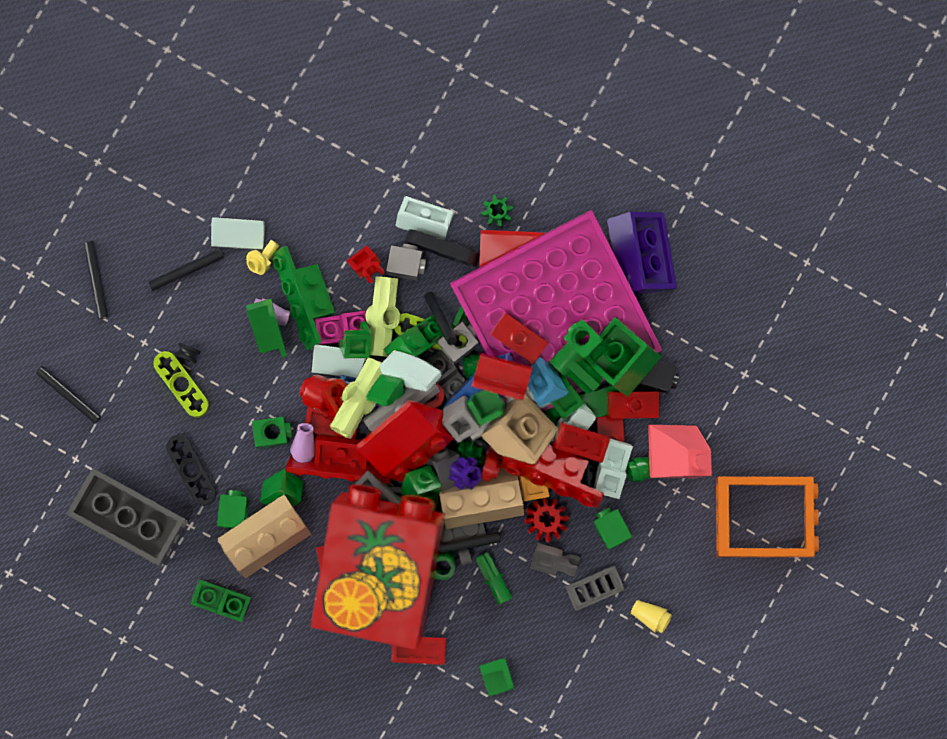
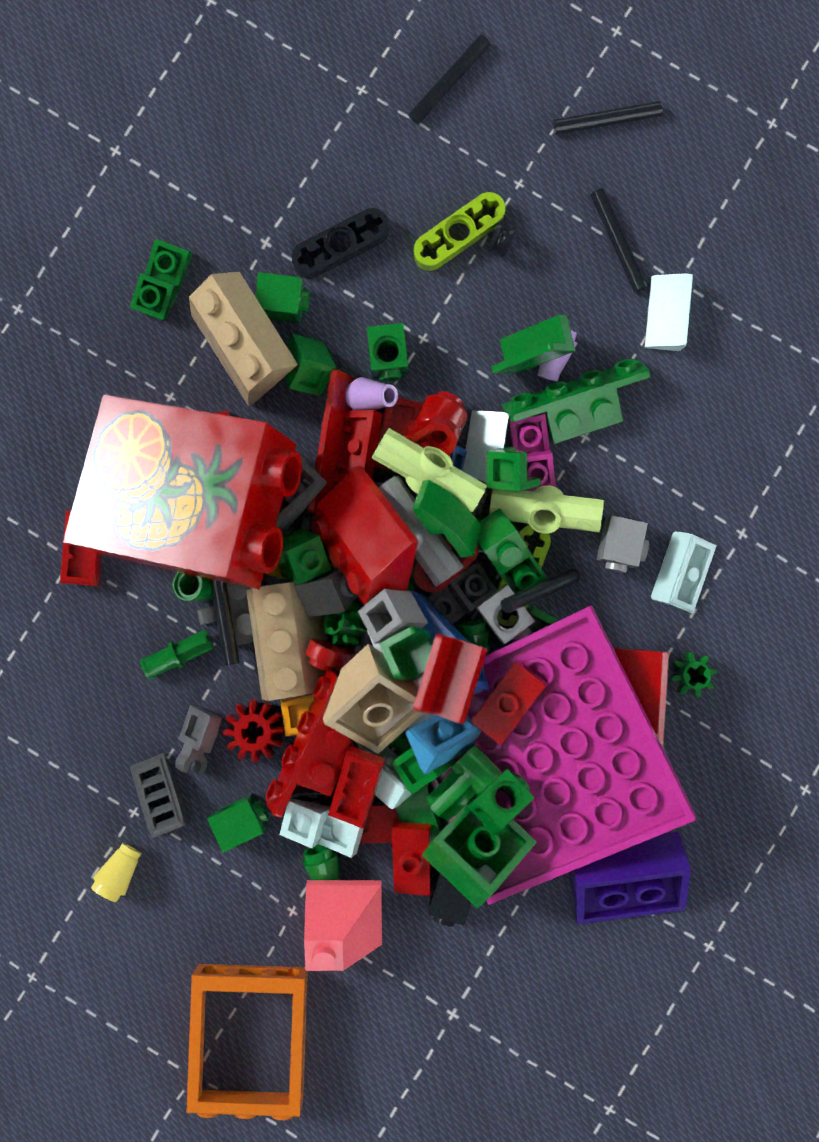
camera: 90 degrees right, 5 degrees up
(127, 517) = (274, 150): dark grey brick -> none
(259, 262) = (627, 341): light yellow plate -> none
(365, 263) = (621, 487): red plate -> none
(414, 371) = (464, 548): light aqua slope -> none
(442, 248) = (641, 595): black beam -> none
(465, 473) = (316, 620): dark purple gear -> none
(496, 677) = (43, 654): green panel -> none

